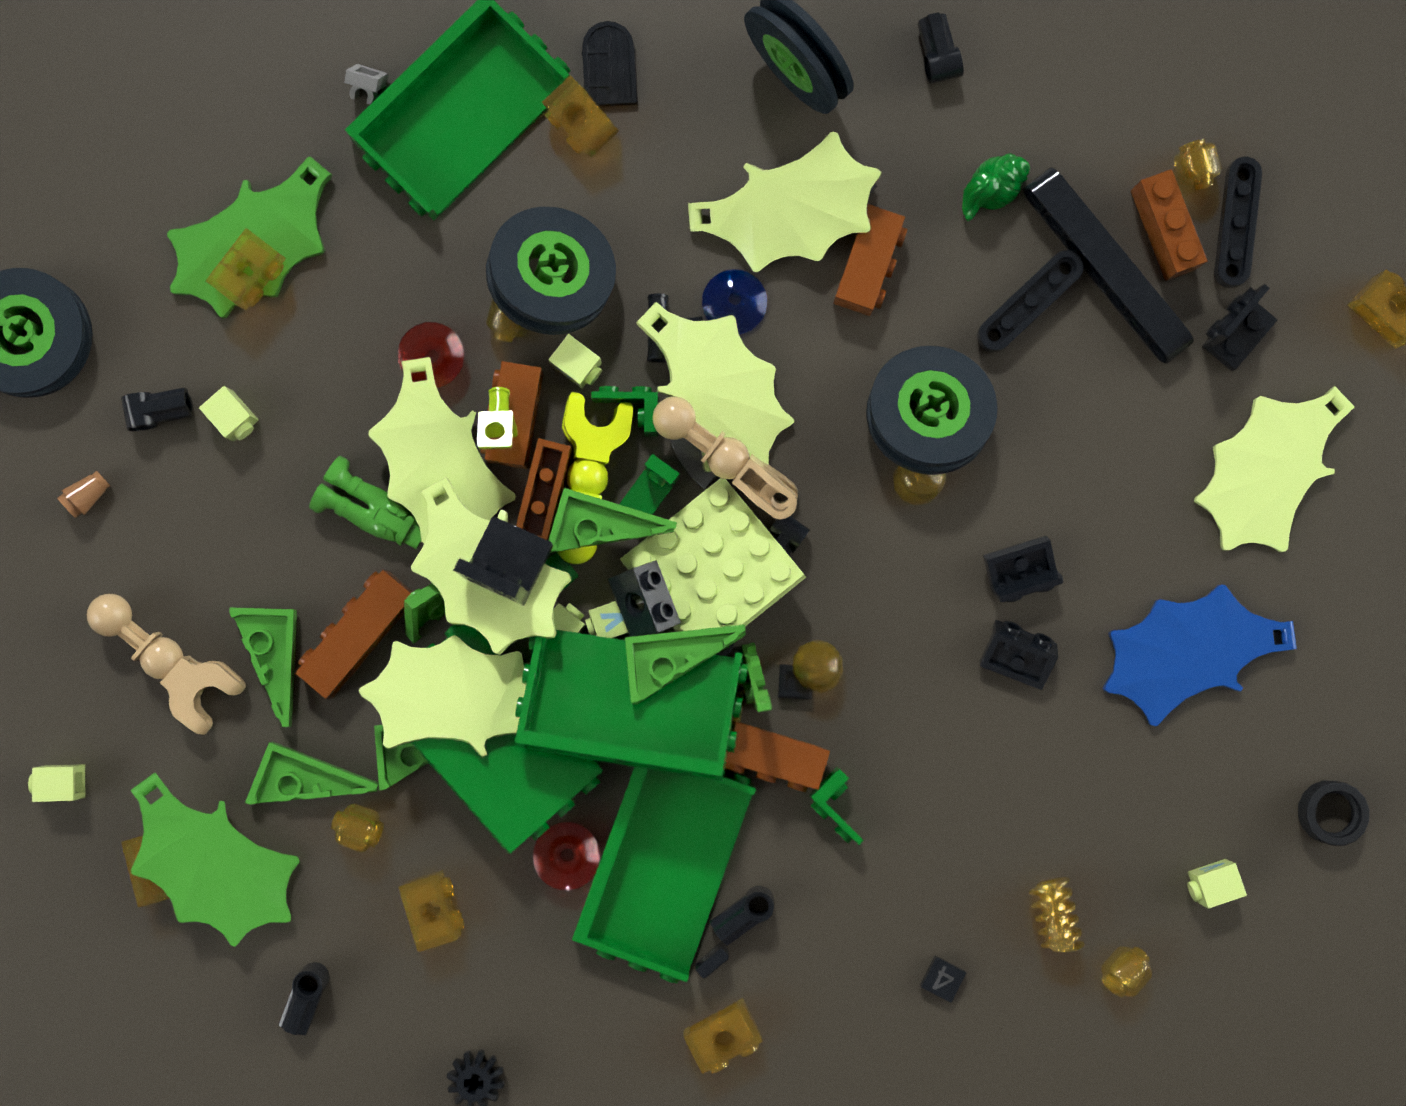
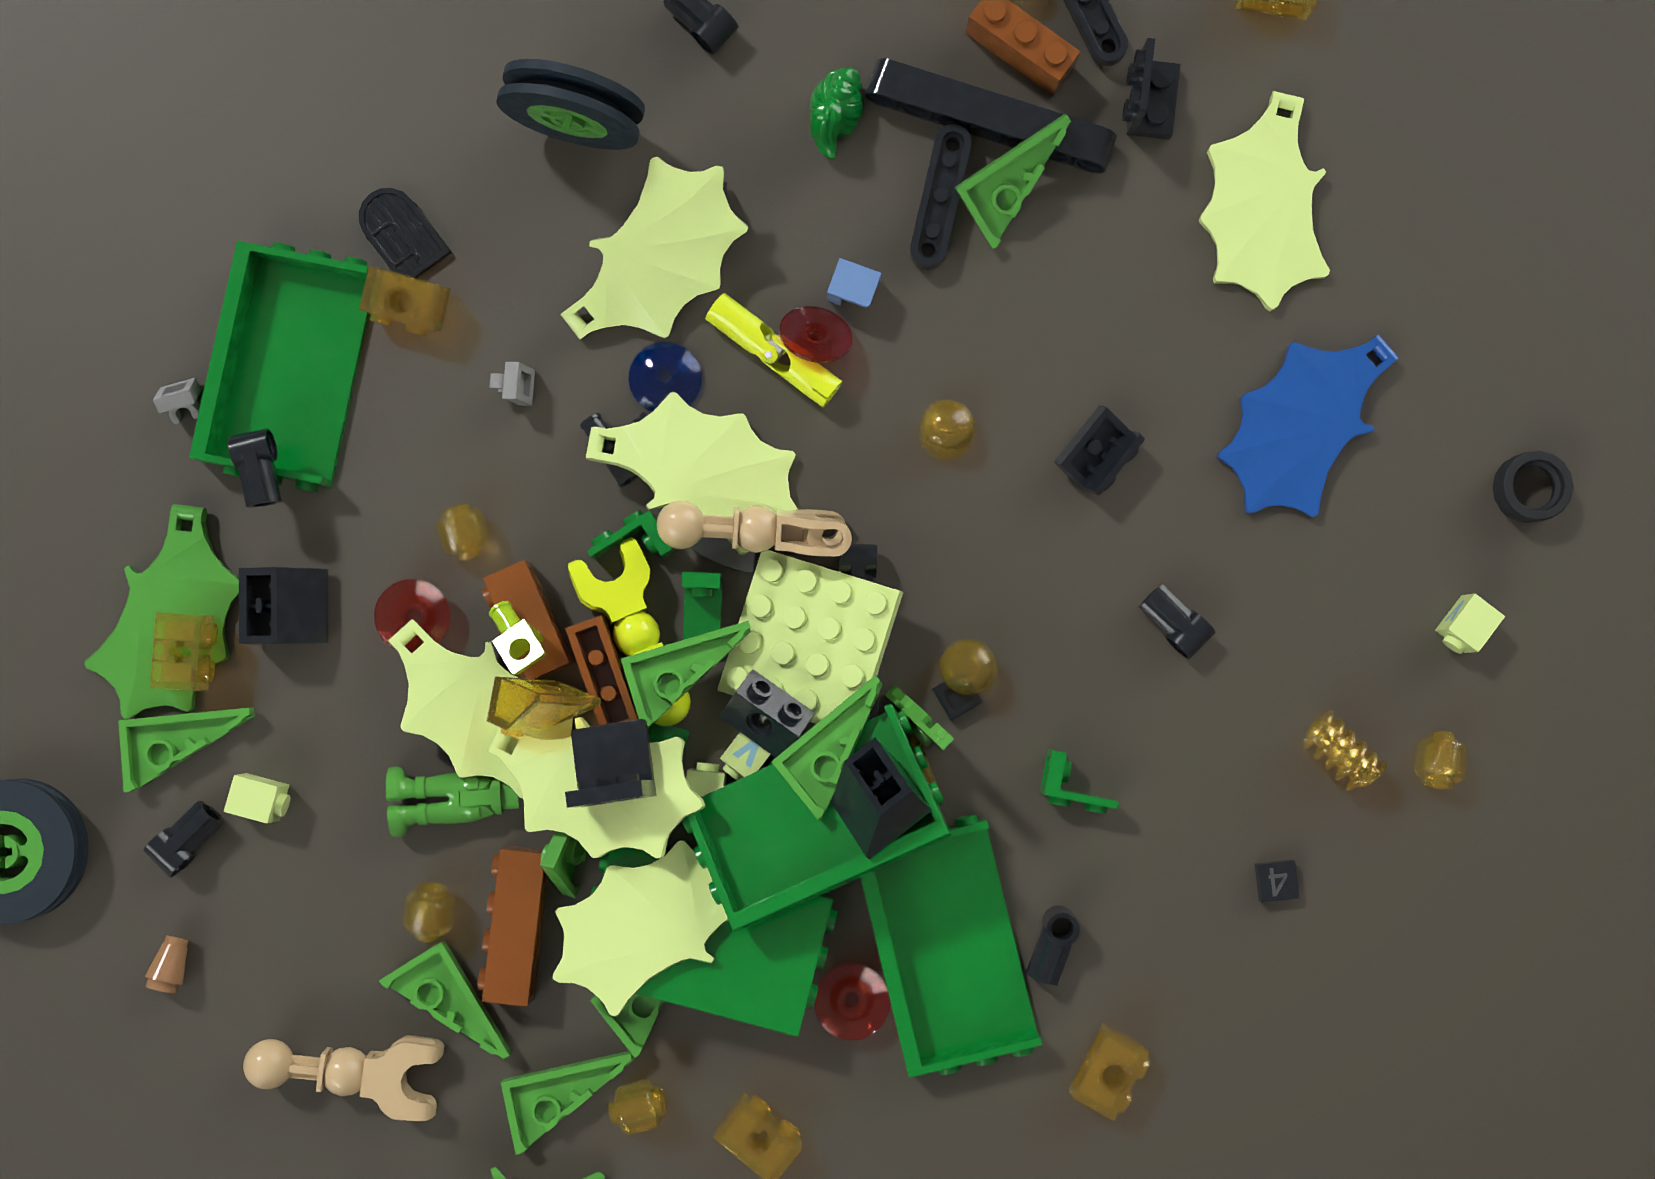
camera: 30 degrees left, 0 degrees up
(186, 327) = (162, 742): none -> bright green wing
(299, 581) = (429, 911): none -> clear yellow head
(341, 285) = (283, 605): none -> black slope
(393, 161) = (255, 458): none -> black piece
(478, 480) = (535, 704): none -> clear yellow slope
(555, 239) = (488, 493): black wheel -> none
(576, 362) = (554, 532): yellowish green brick -> none
(620, 232) = (515, 383): none -> light grey tile
(685, 715) = (876, 798): none -> black slope
(712, 960) = (1052, 1008): black tile -> none
(777, 757) = (987, 777): dark orange brick -> none
(824, 320) = (760, 340): none -> neon yellow piece
(867, 342) = (815, 334): none -> clear red dish
(871, 262) = (768, 257): dark orange brick -> none
(921, 323) = (853, 284): none -> medium blue panel
(934, 442) = (893, 331): black wheel -> none
(998, 744) = (1183, 627): none -> black piece
(1020, 654) = (1148, 531): black bracket -> none
(1076, 324) = (999, 188): none -> bright green wing

